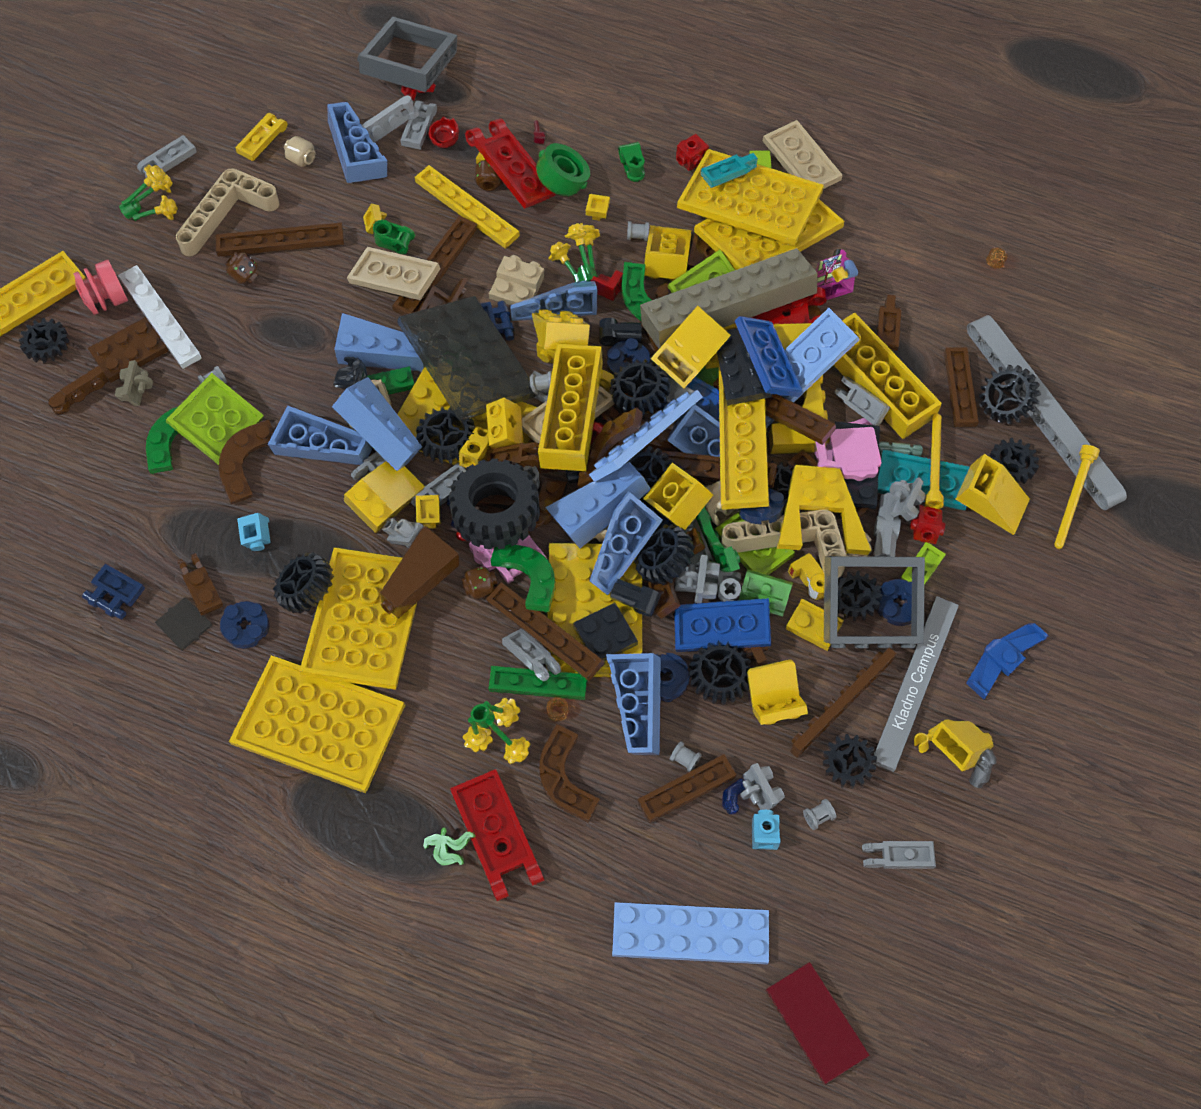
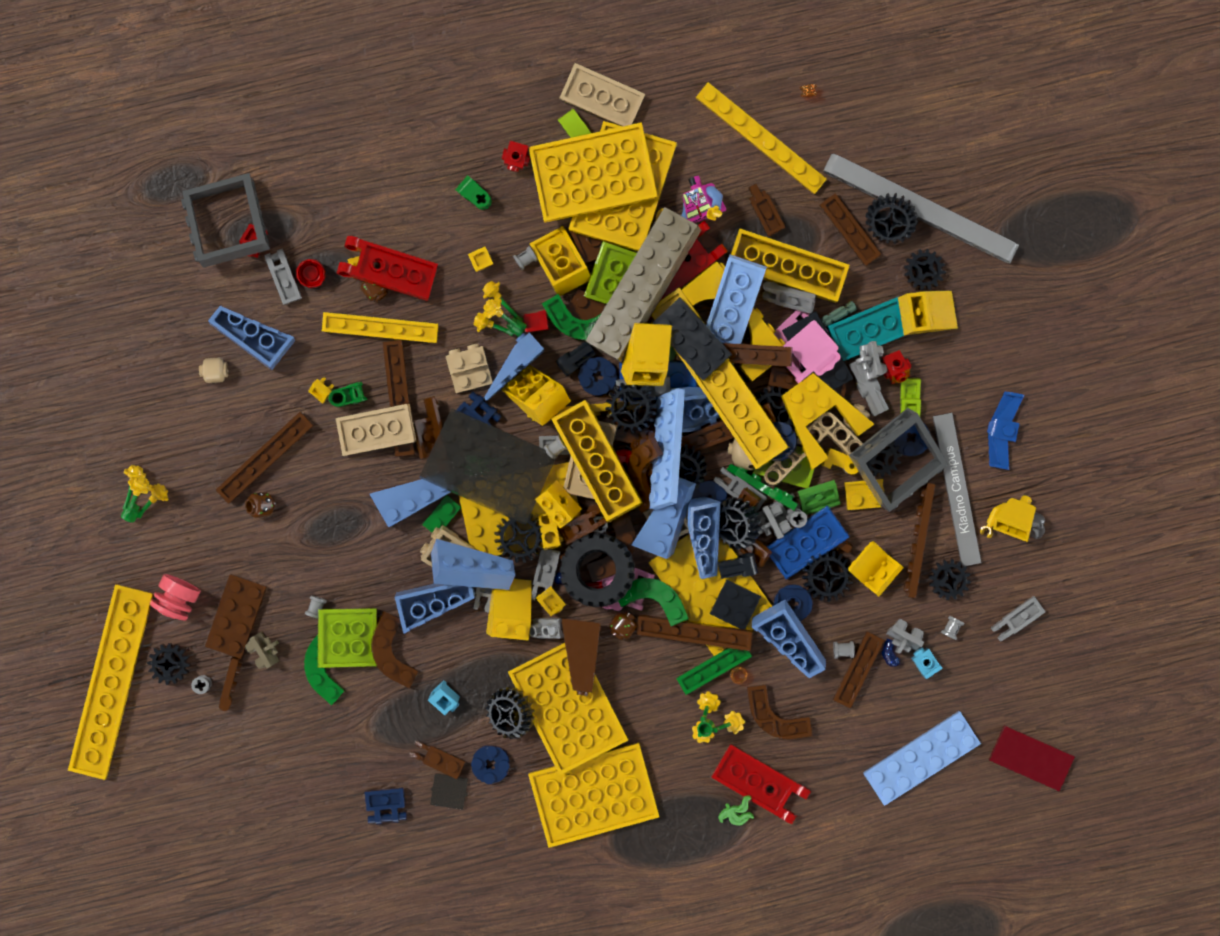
camera: 30 degrees left, 25 degrees up
(53, 373) = (199, 689): none -> light grey bush
(159, 317) = (236, 588): white plate -> none
(169, 155) = (116, 448): light grey plate -> none
(218, 202) = (196, 461): tan beam -> none
(261, 136) = (171, 376): yellow plate -> none
(351, 374) = (412, 535): black hair -> none
(391, 118) = (262, 293): light grey plate -> none
(531, 654) = (696, 653): light grey hinge -> none
(539, 136) = (383, 220): dark red hand -> none
(562, 170) = (437, 238): green piece -> none
(678, 496) = (719, 478): yellow brick -> none
(728, 169) = (562, 164): teal hinge -> none
(768, 357) = (709, 323): blue tile -> none
(926, 272) = (761, 138): none -> yellow plate
(934, 497) = (888, 343): yellow piece -> none
(1088, 455) = (976, 236): yellow piece -> none

